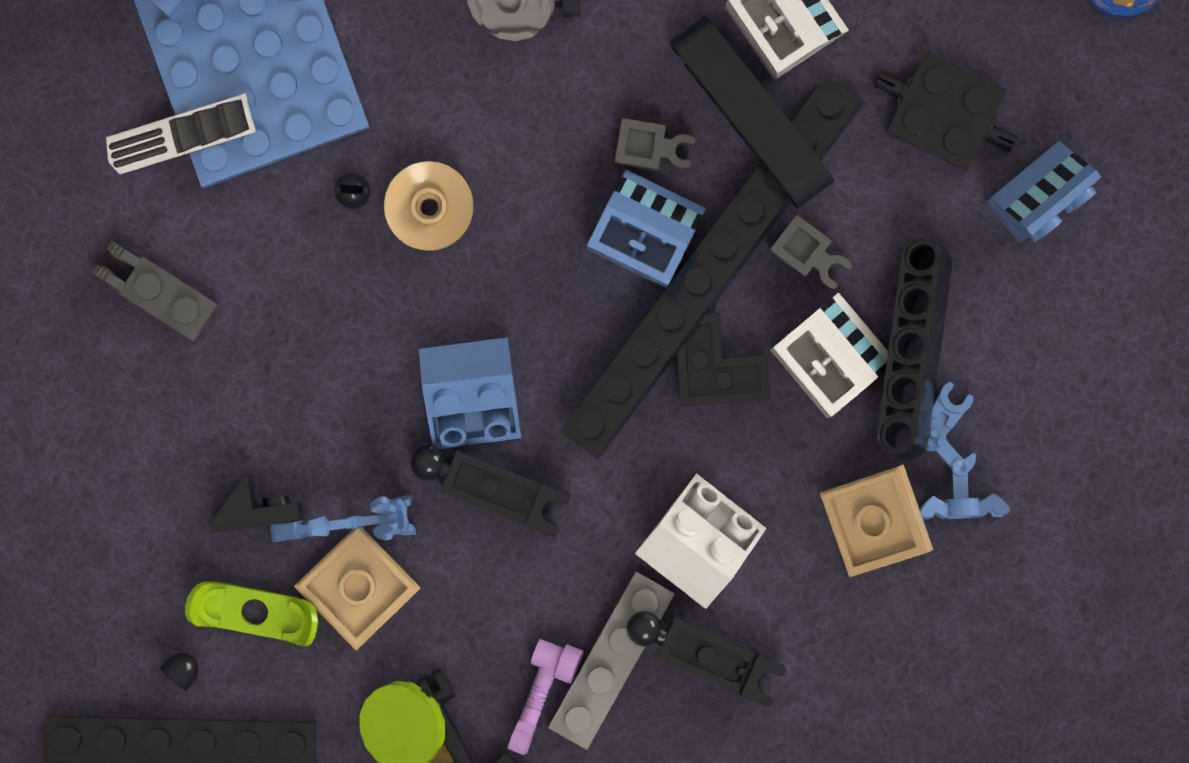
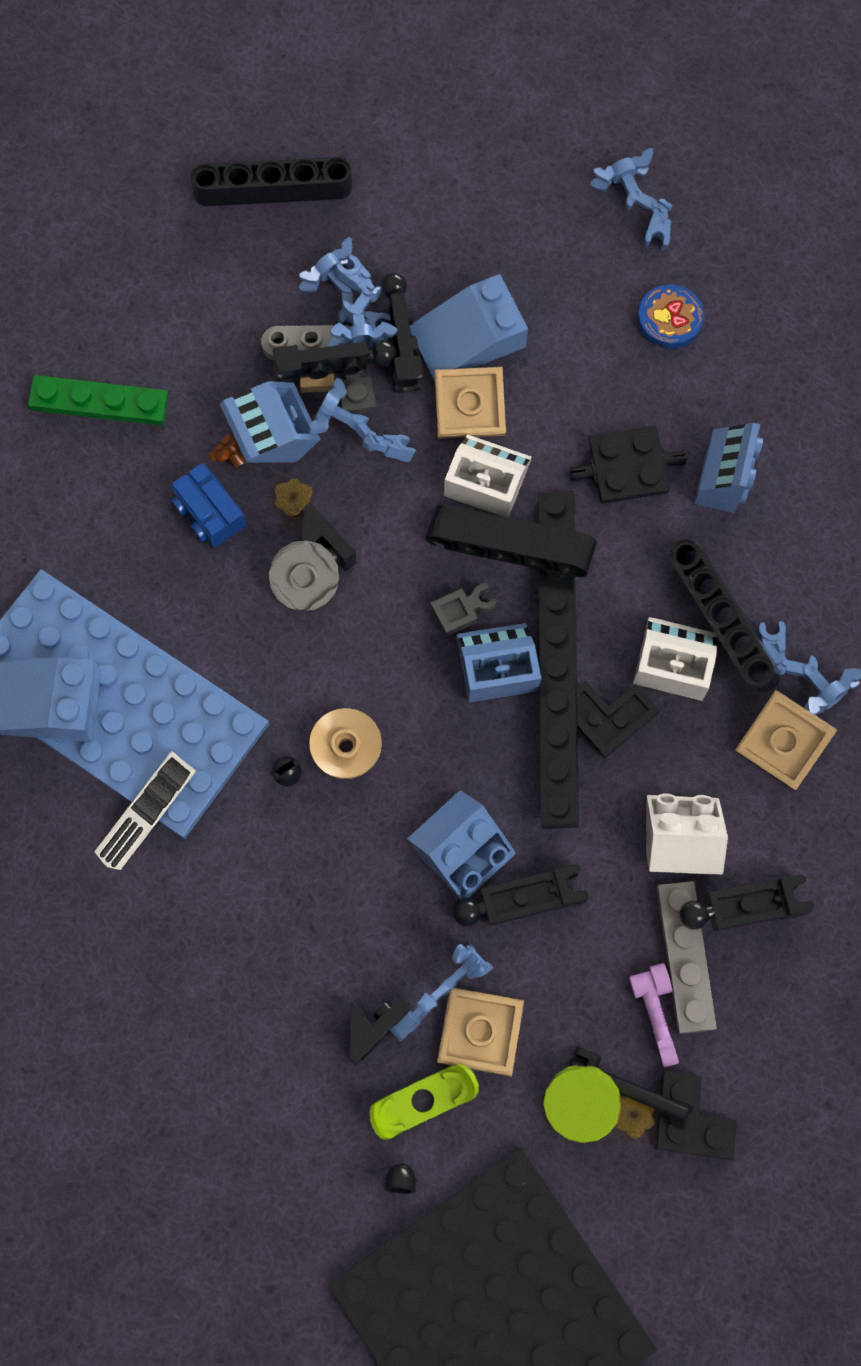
camera: 35 degrees left, 15 degrees down
(160, 293) = (202, 928): dark grey hinge -> none
(804, 248) = (607, 605): dark grey plate -> none

